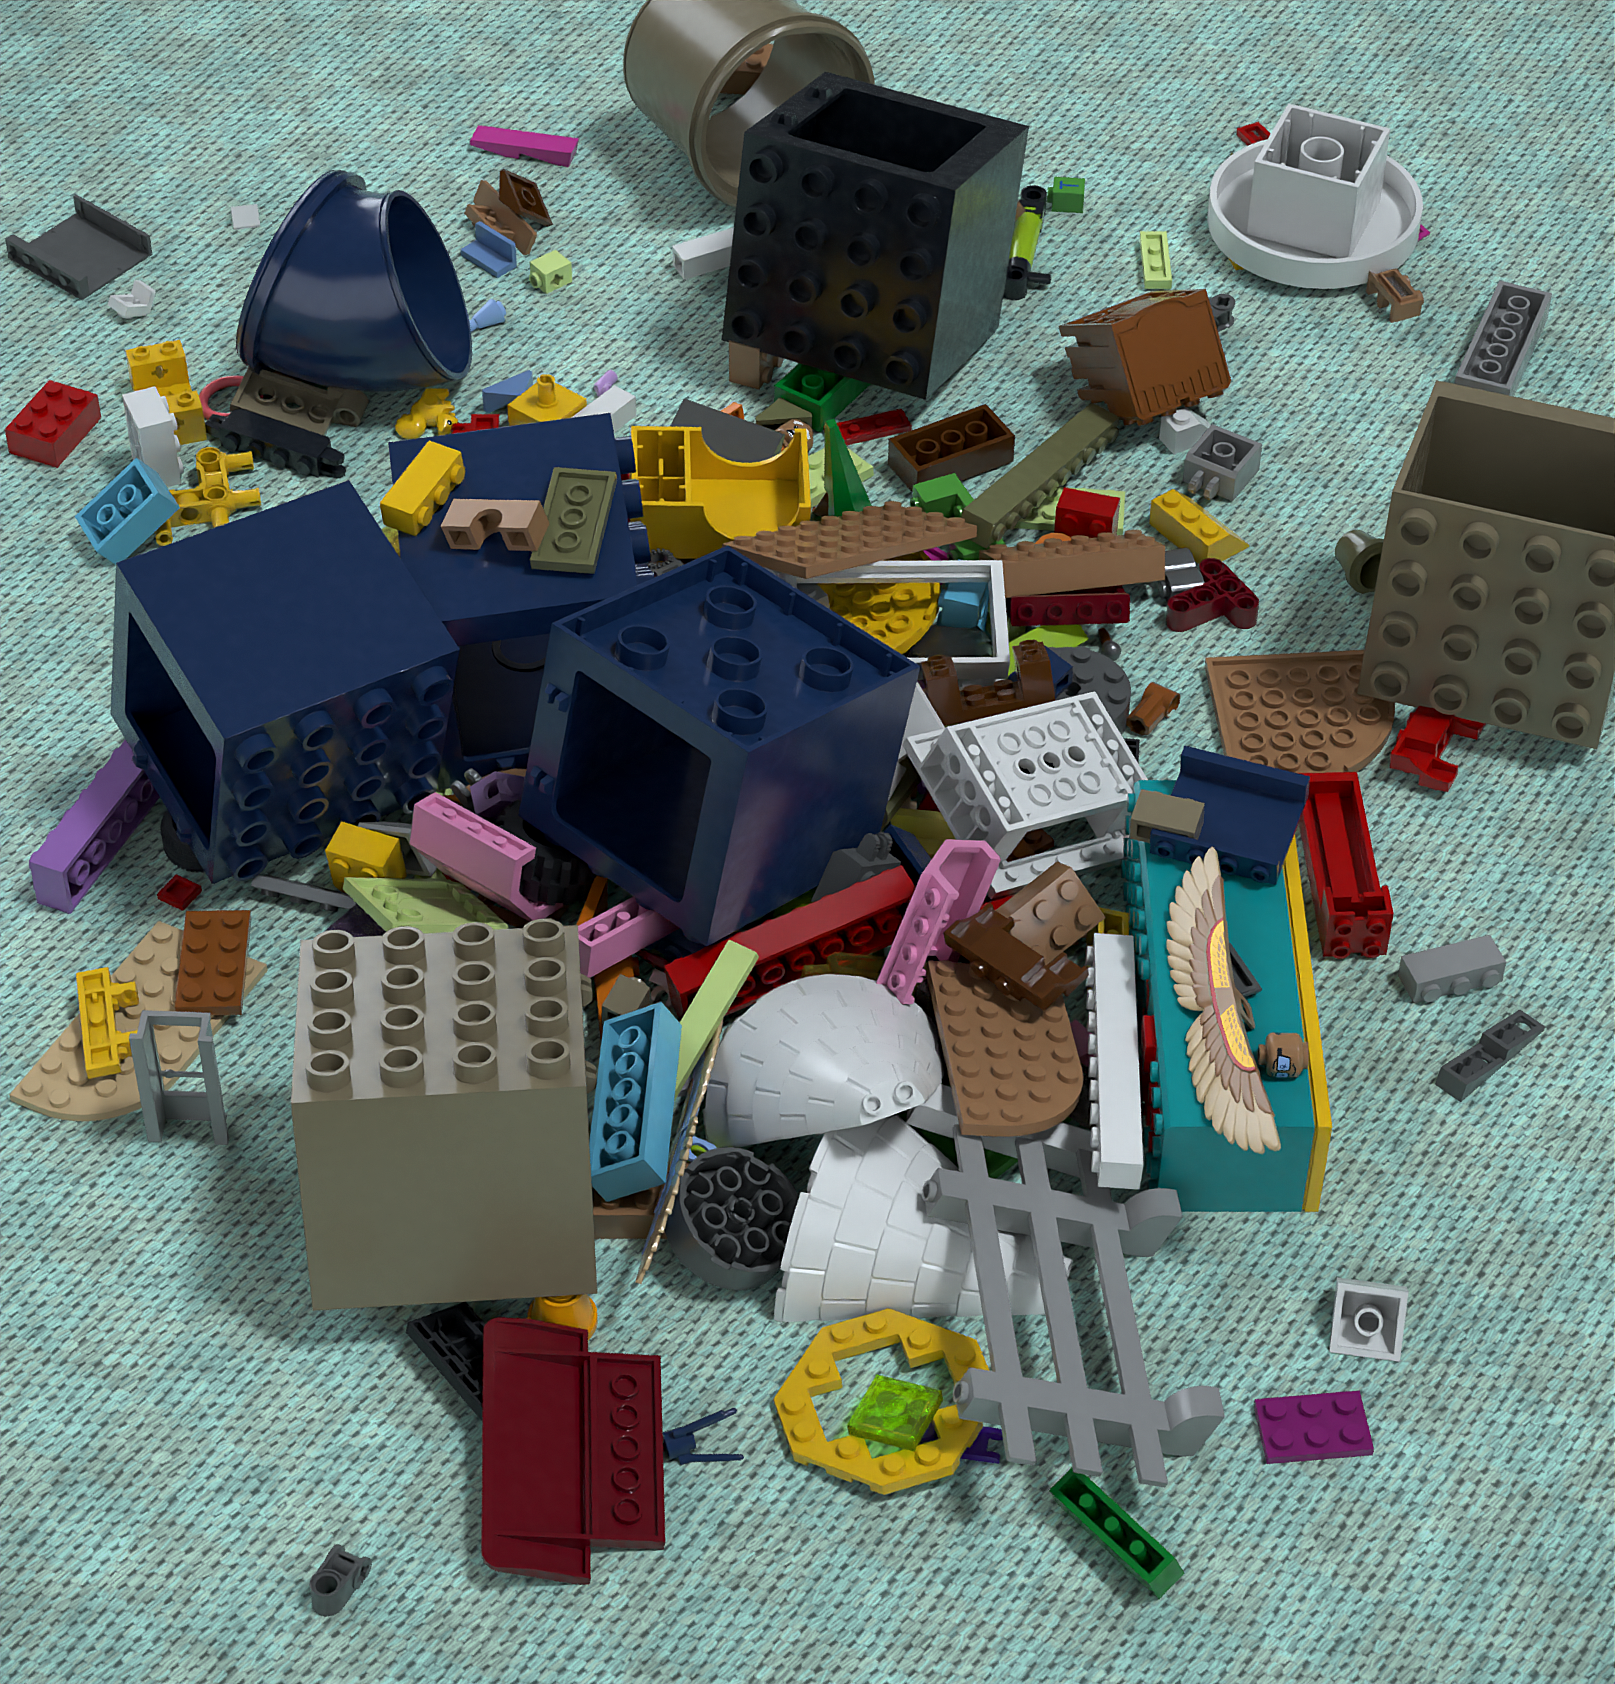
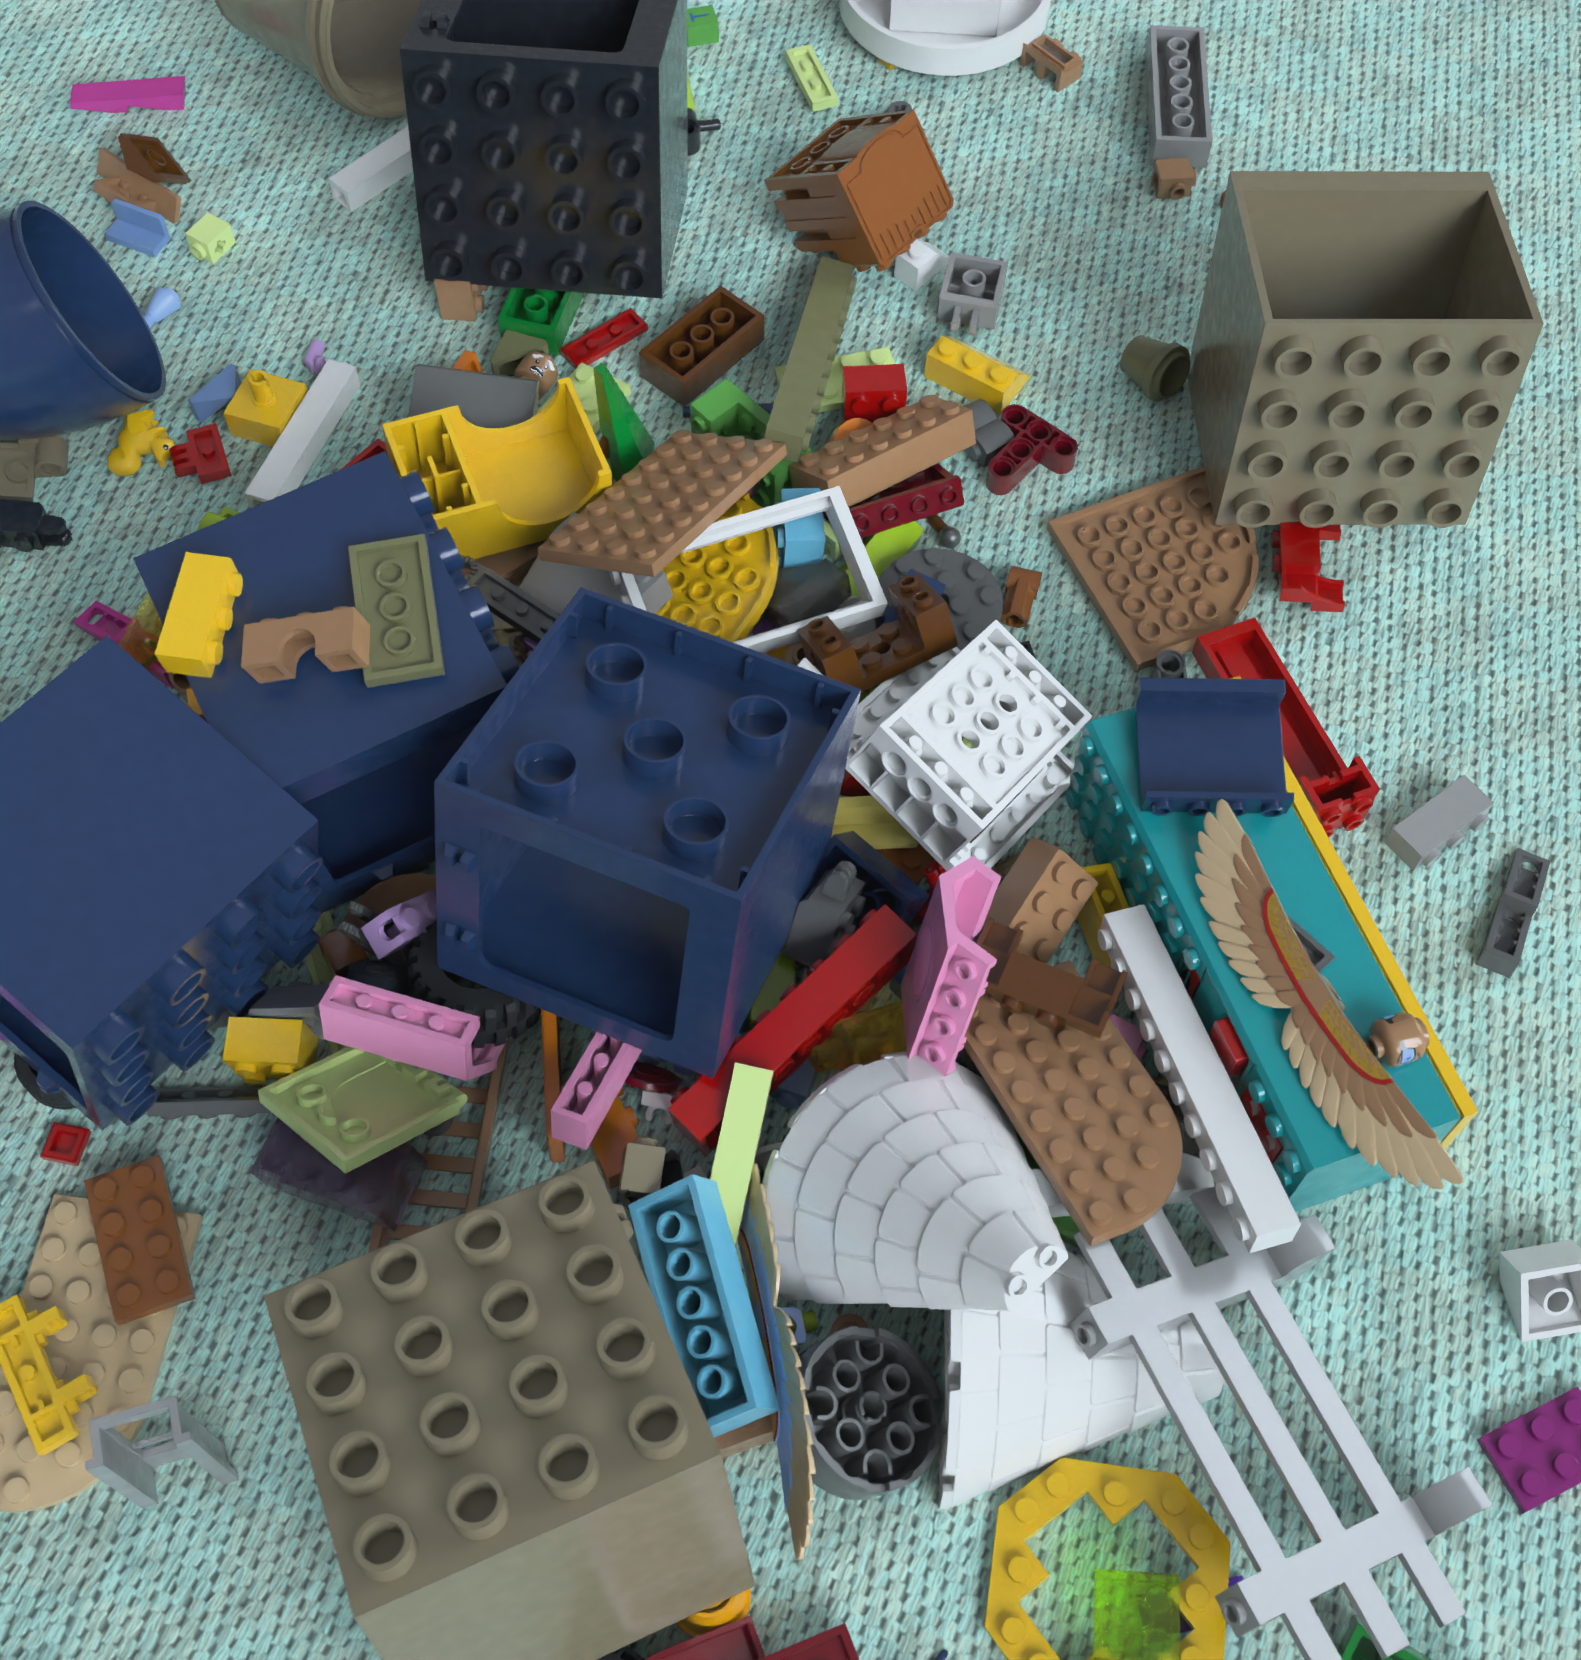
camera: 20 degrees left, 15 degrees up
(1167, 814) = (1152, 769): dark tan brick -> none

